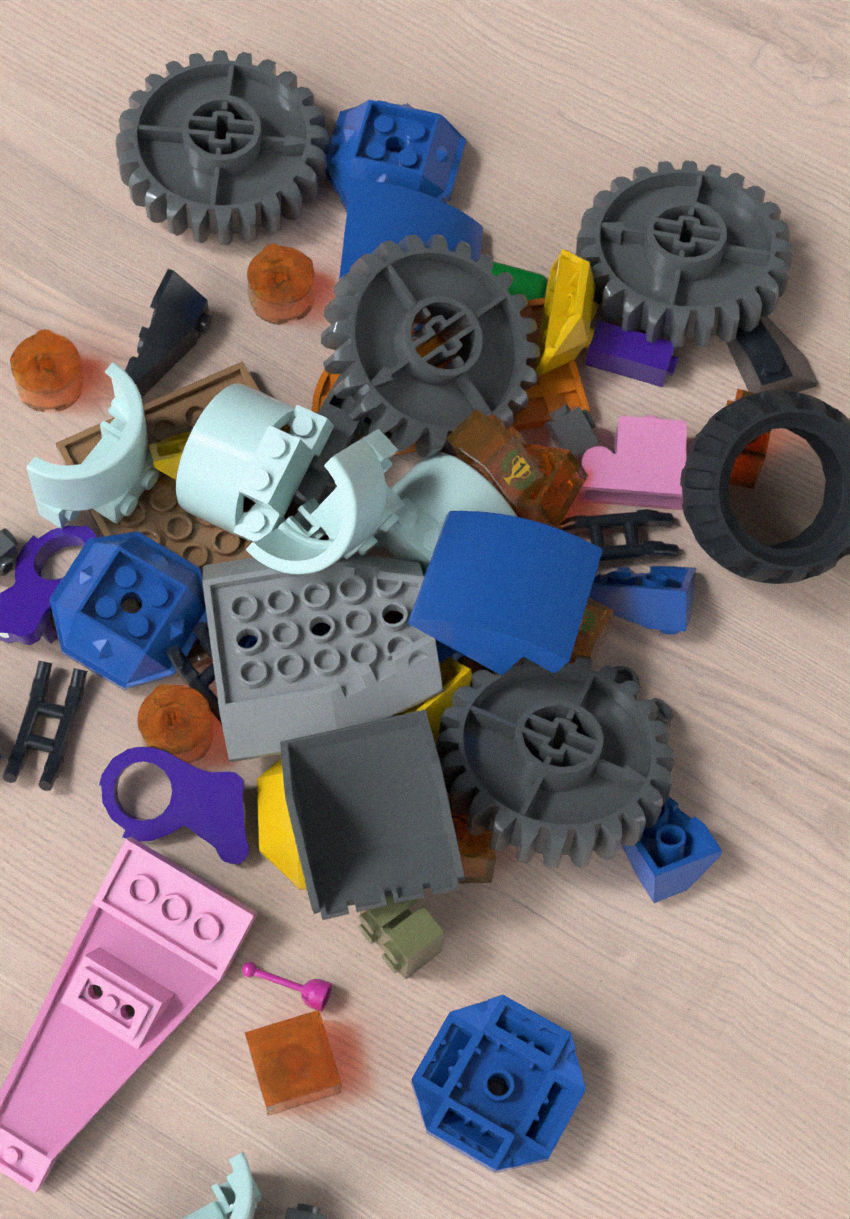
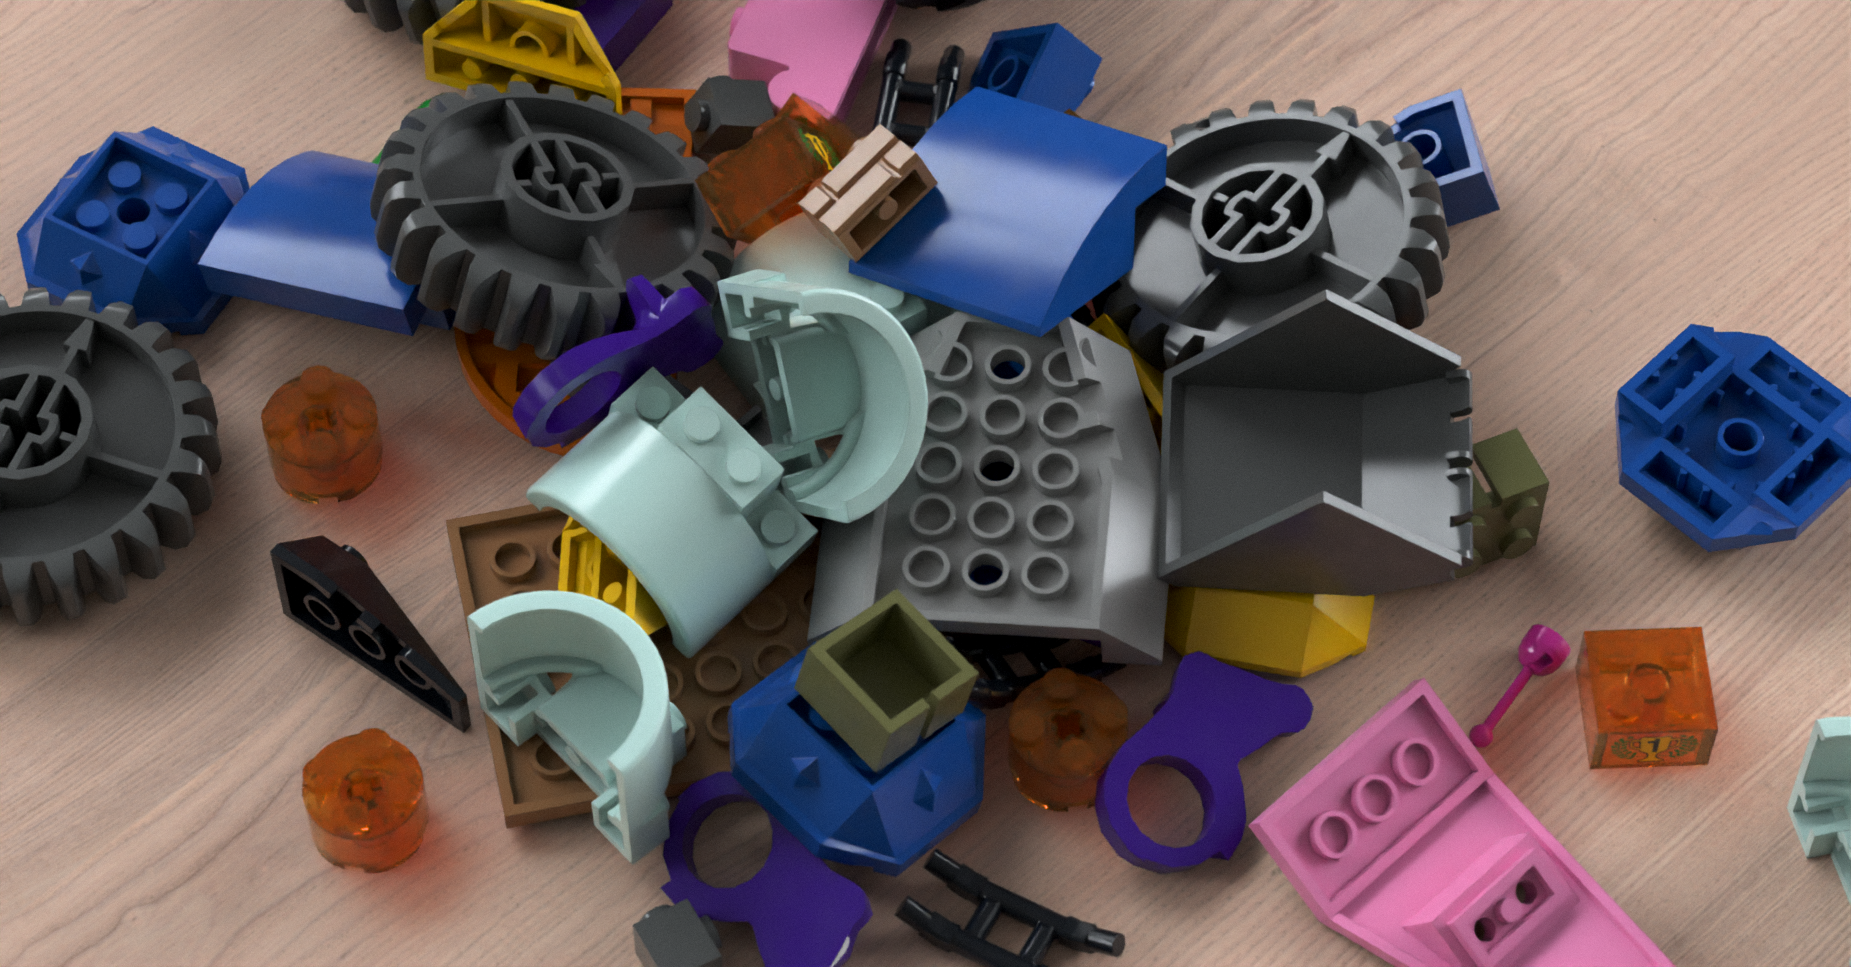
camera: 70 degrees left, 10 degrees down
(137, 594) = (885, 680): none -> olive piece
(311, 393) = (667, 334): none -> dark purple animal
(484, 500) = (867, 192): none -> medium nougat brick

